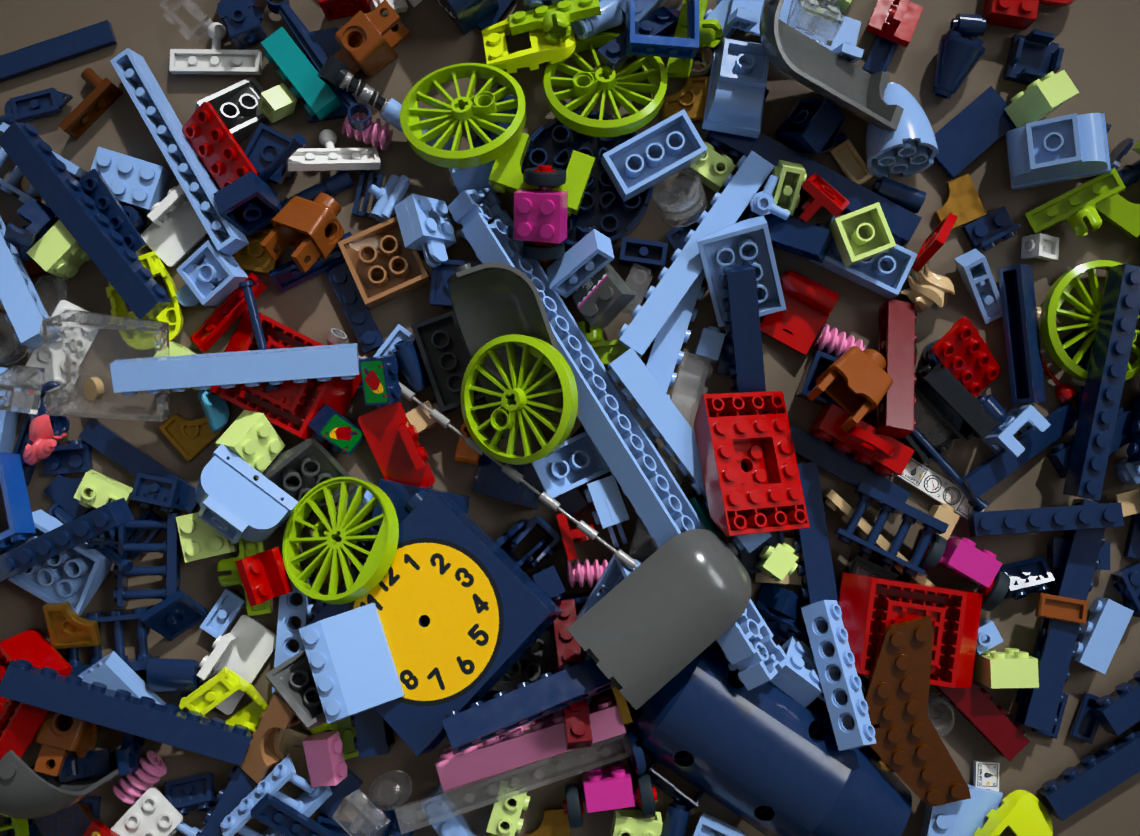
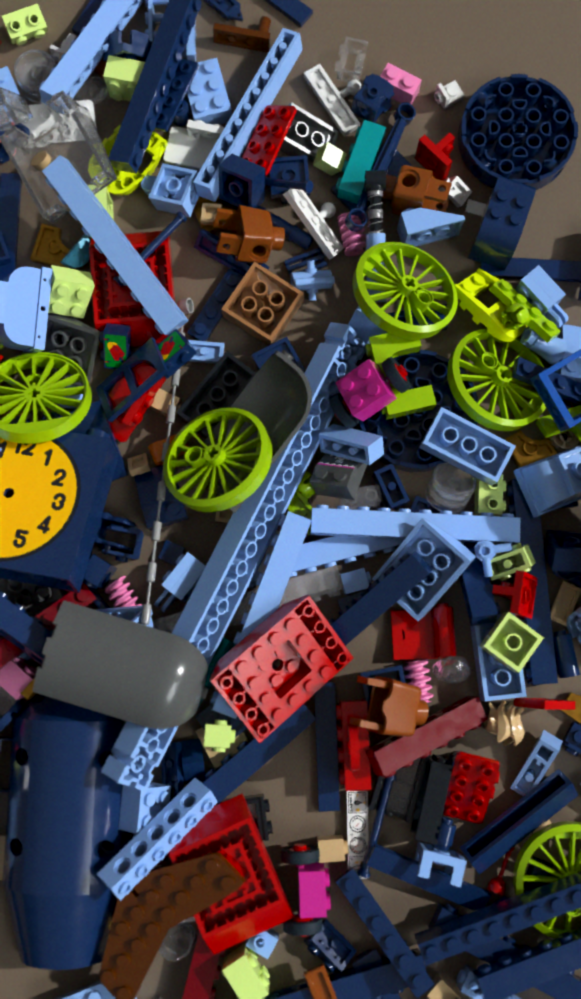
camera: 55 degrees right, 5 degrees down
(225, 315) = (153, 219): red tile -> none
(257, 255) = (208, 213): none -> tan plate
(364, 403) = (146, 353): none -> dark blue window
(408, 52) = (427, 226): none -> light blue slope
(411, 366) = (197, 370): dark blue brick -> none
(426, 227) = (306, 317): light blue brick -> none
(467, 480) = (138, 464): none -> tan plate
(569, 535) = (140, 566): red bracket -> none
(570, 466) = (193, 531): light blue slope -> none
(835, 502) = (285, 797): tan plate -> none
(848, 307) = (451, 669): none -> clear hat
(909, 516) = (318, 819): dark blue fence -> none

